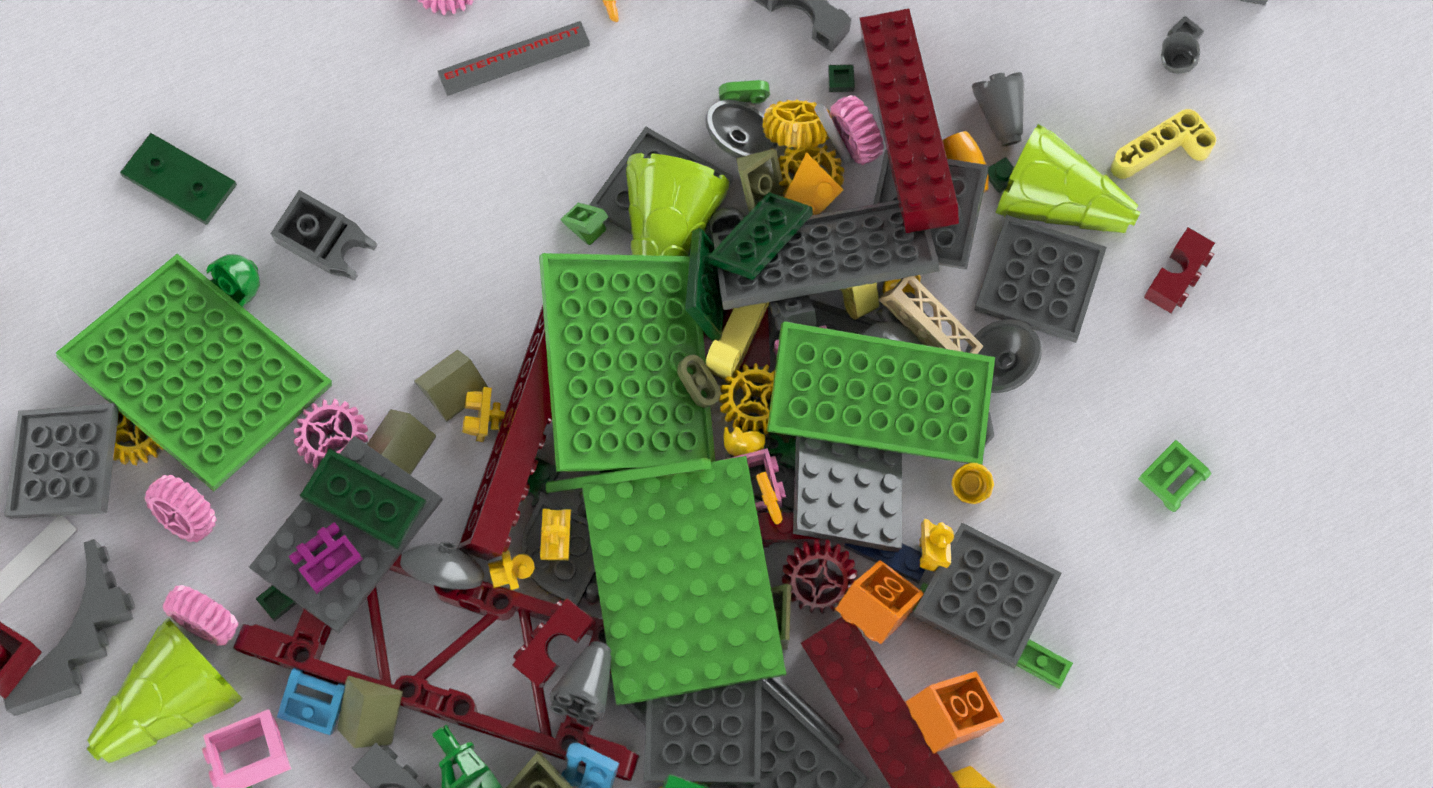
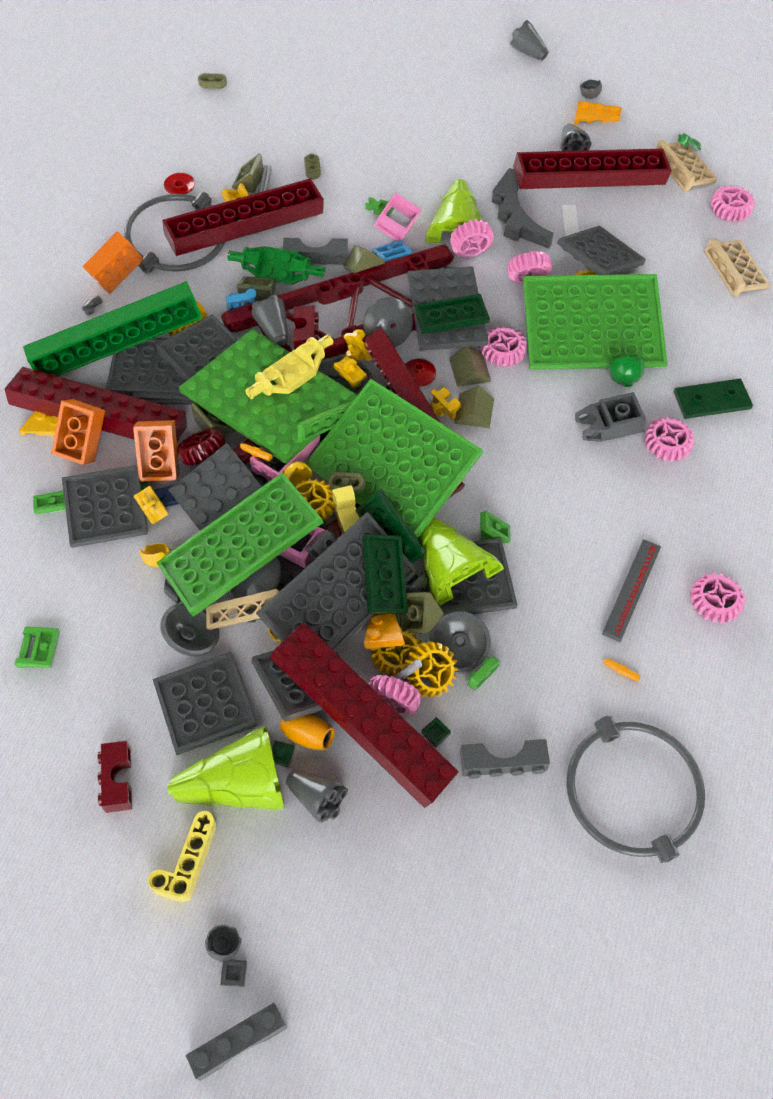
camera: 140 degrees right, 10 degrees down
(283, 155) = (667, 444): none -> bright pink gear
(328, 564) = (436, 283): magenta plate -> none
(457, 505) = (422, 371): none -> red dish
(634, 575) = (292, 369): none -> light yellow plate

